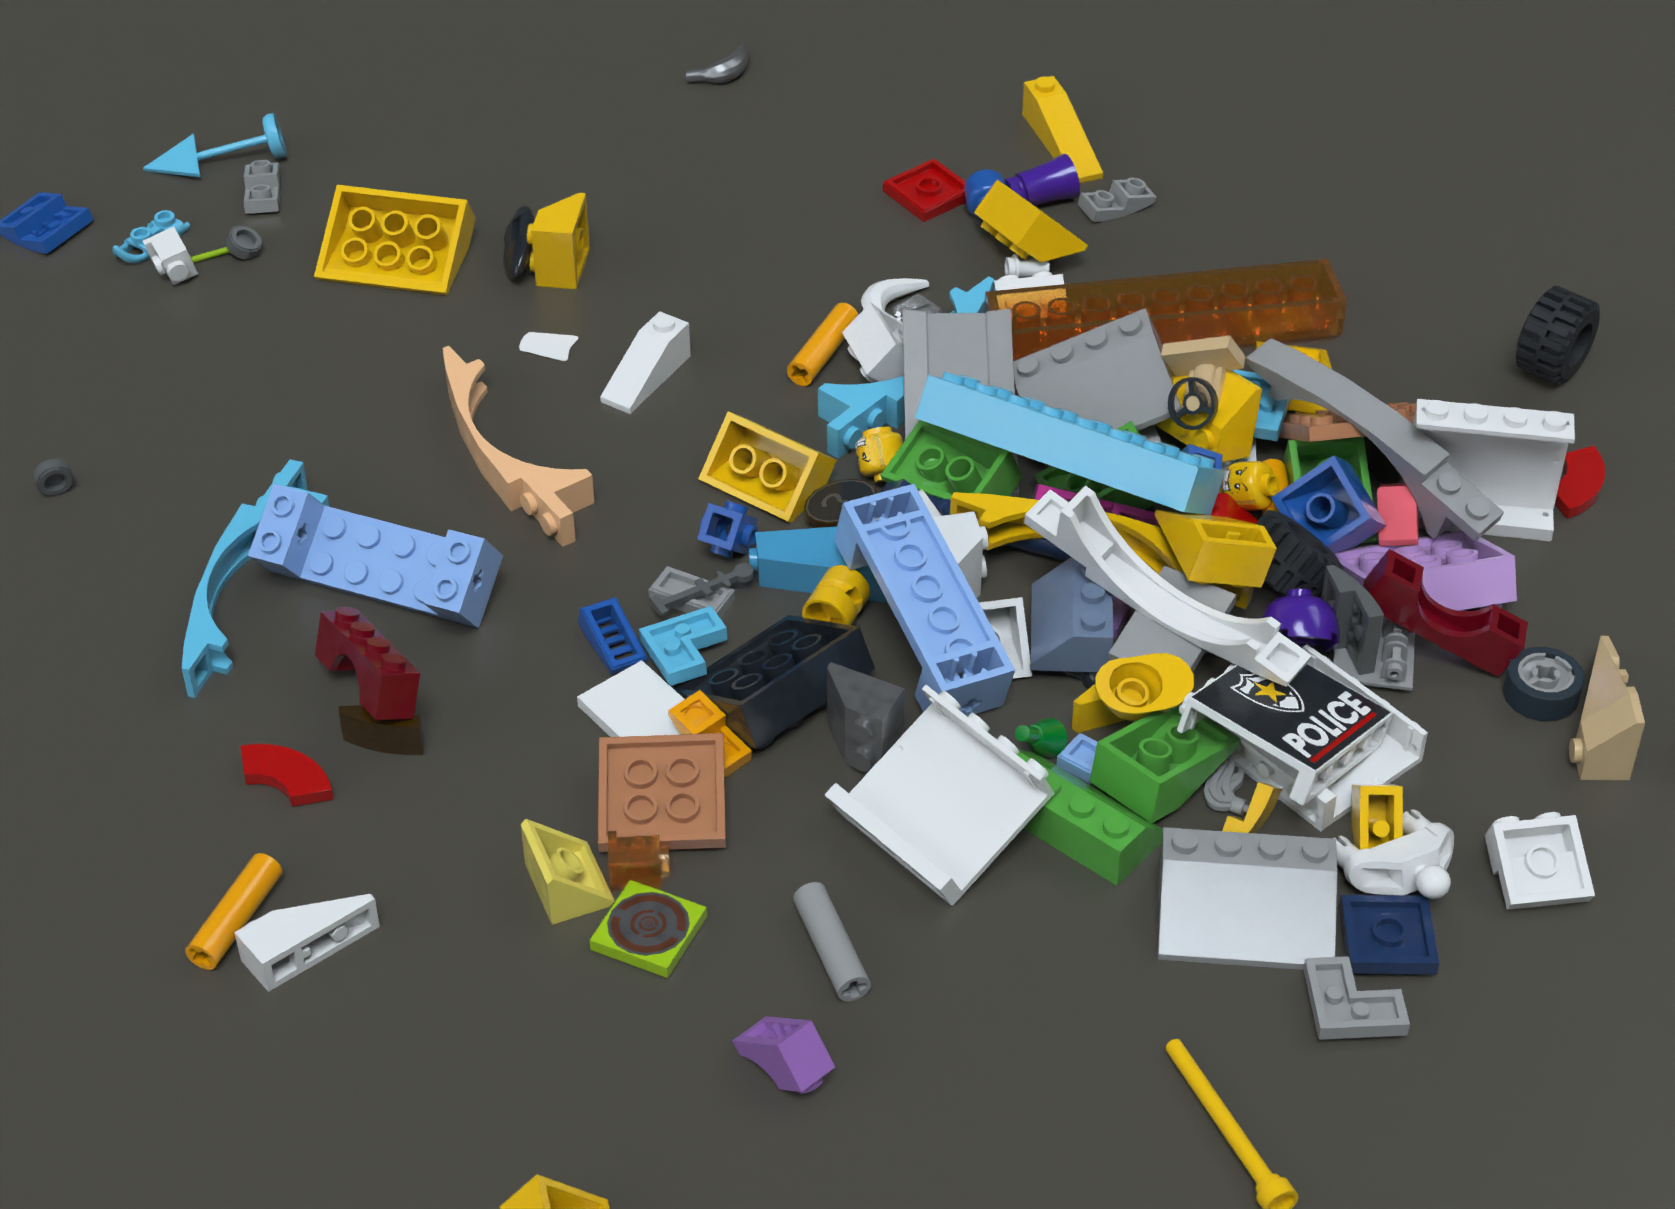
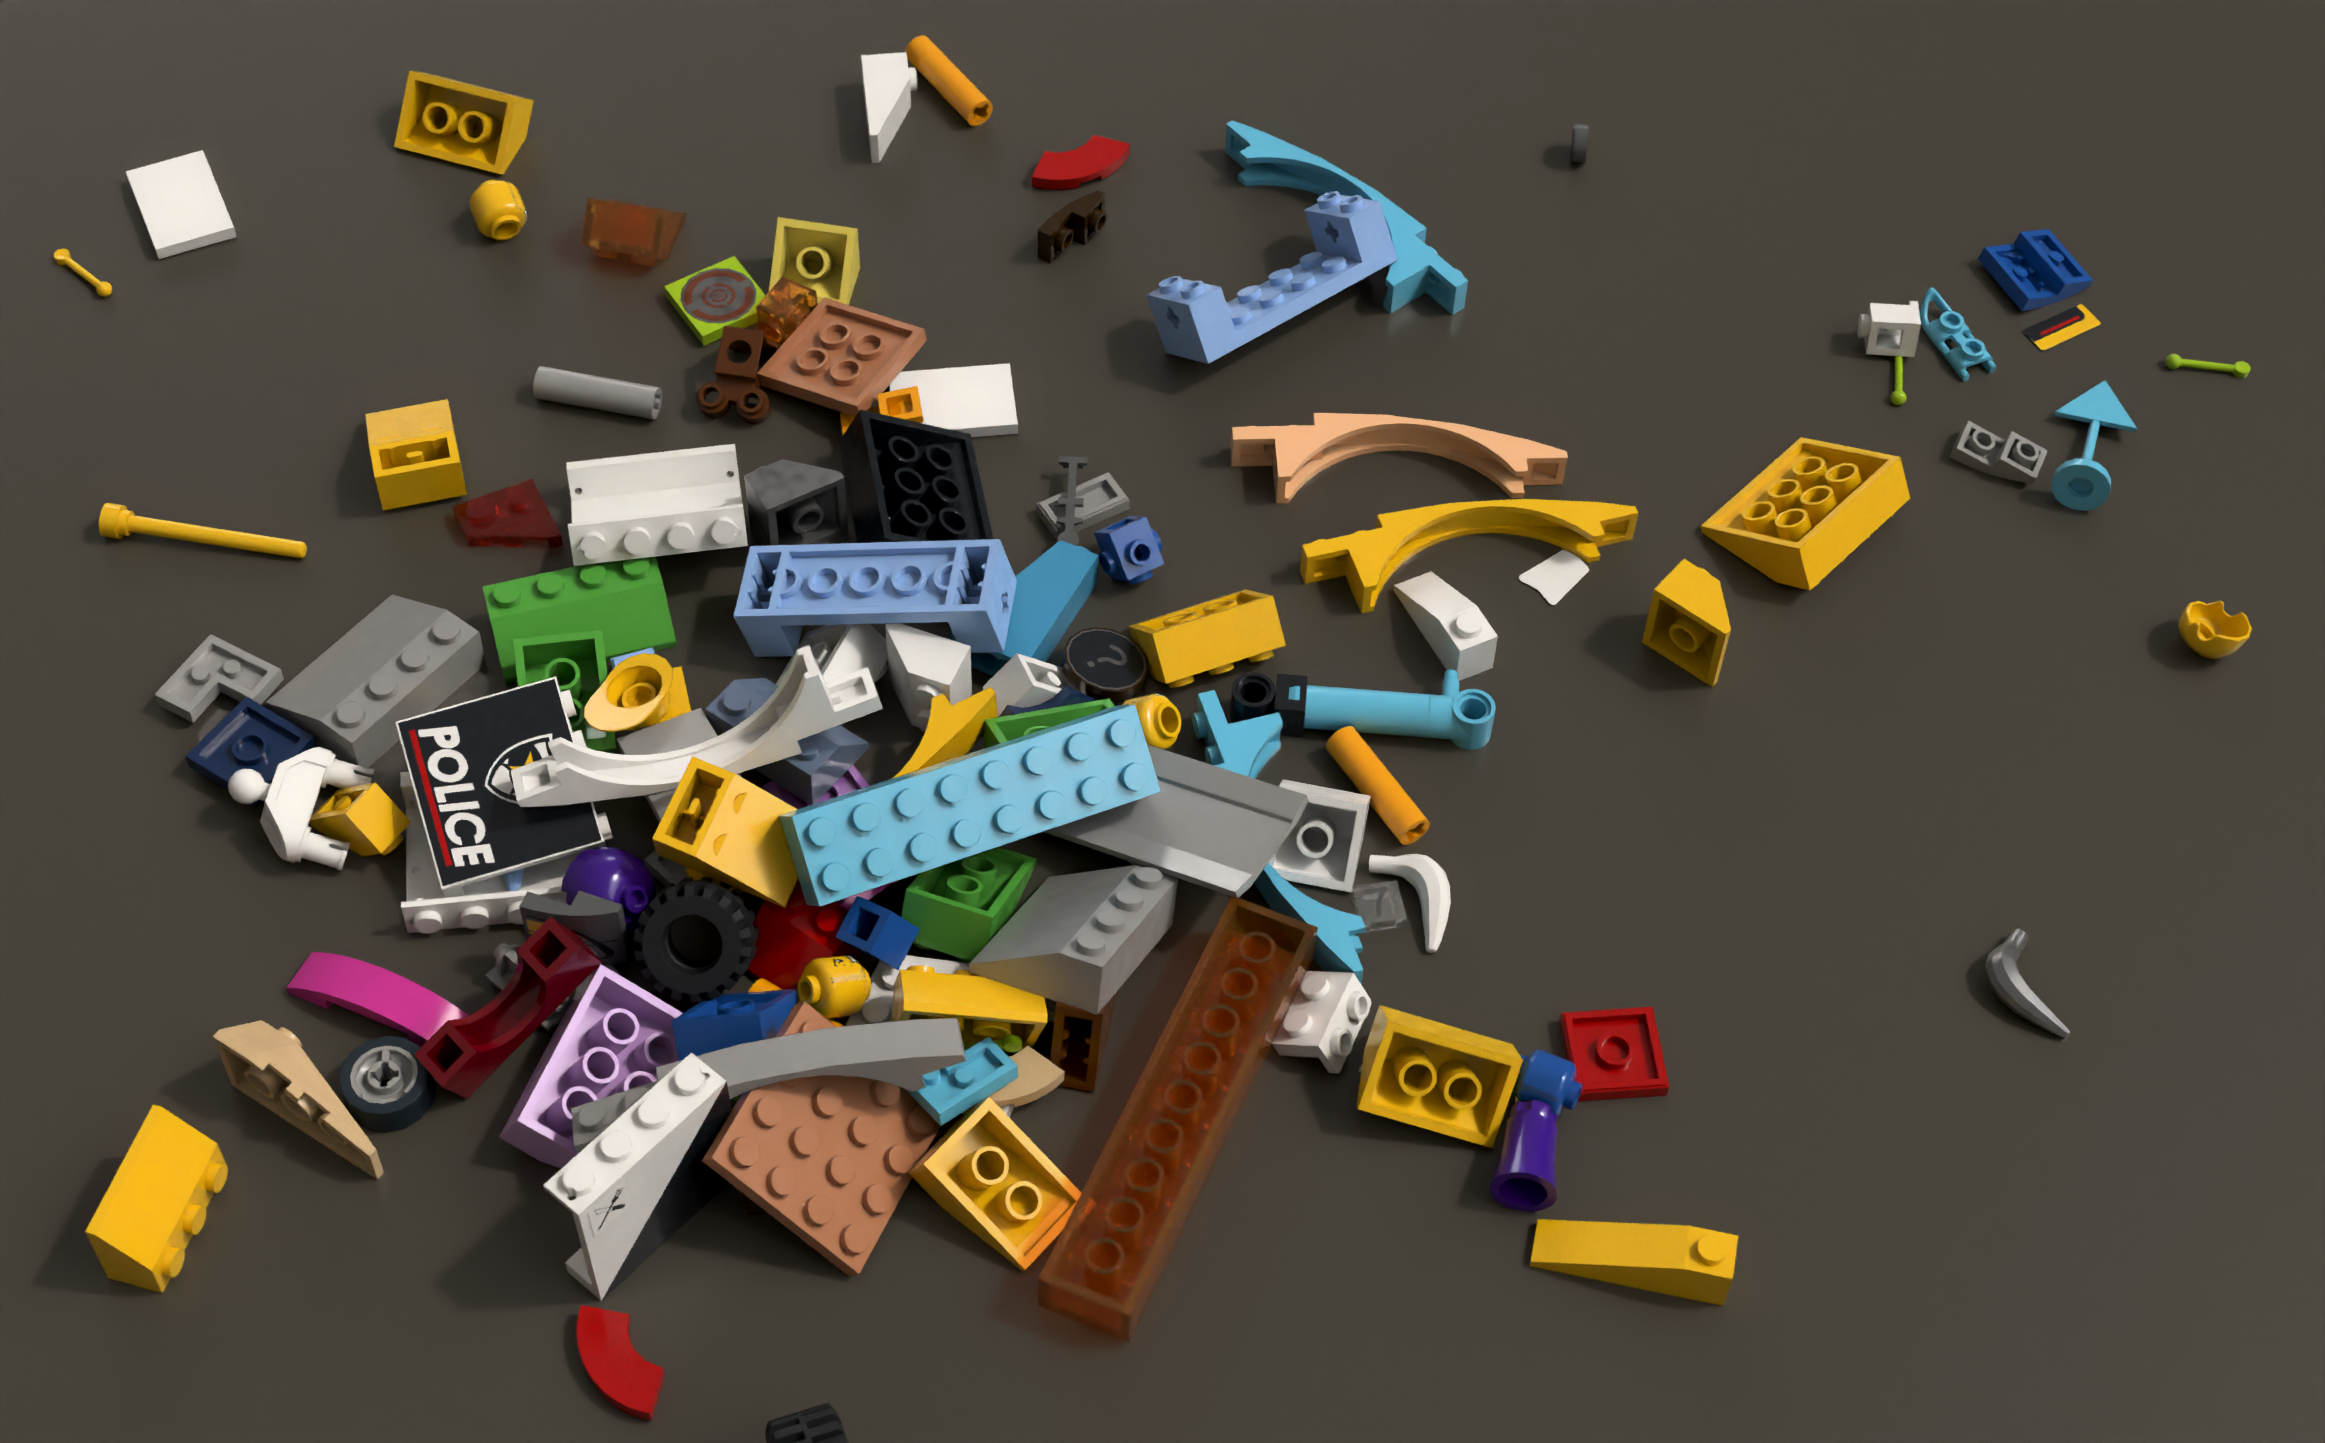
camera: 120 degrees right, 10 degrees up
(87, 118) = (2240, 369): none -> lime hinge
(95, 201) = (2062, 327): none -> sticker
(243, 242) = (1892, 398): dark grey tile -> none
(369, 58) = (2211, 630): none -> yellow hair
(384, 675) = (1096, 207): dark red arch -> none
(516, 248) = (1755, 610): black piece -> none
(604, 612) = (1094, 425): blue slope -> none
(611, 1028) = (630, 229): none -> clear orange slope
(620, 417) = (1375, 554): none -> yellow slope
(671, 1145) = (498, 209): none -> yellow head
(676, 643) = (1017, 449): medium azure plate -> none
(750, 838) = (738, 380): none -> reddish brown piece
(787, 1052) = (514, 303): medium lavender arch -> none
(792, 398) = (1454, 715): none -> medium azure piece
(1009, 1017) = (415, 454): none -> yellow slope
(1013, 927) = (508, 518): none -> clear red wing
(1044, 737) = (673, 635): green cone -> none
(1121, 200) = (1459, 1235): light grey slope -> none
(1206, 365) = (983, 984): tan piece -> none
(1498, 735) = (374, 994): none -> dark pink slope
(1539, 861) = (207, 909): white plate -> none

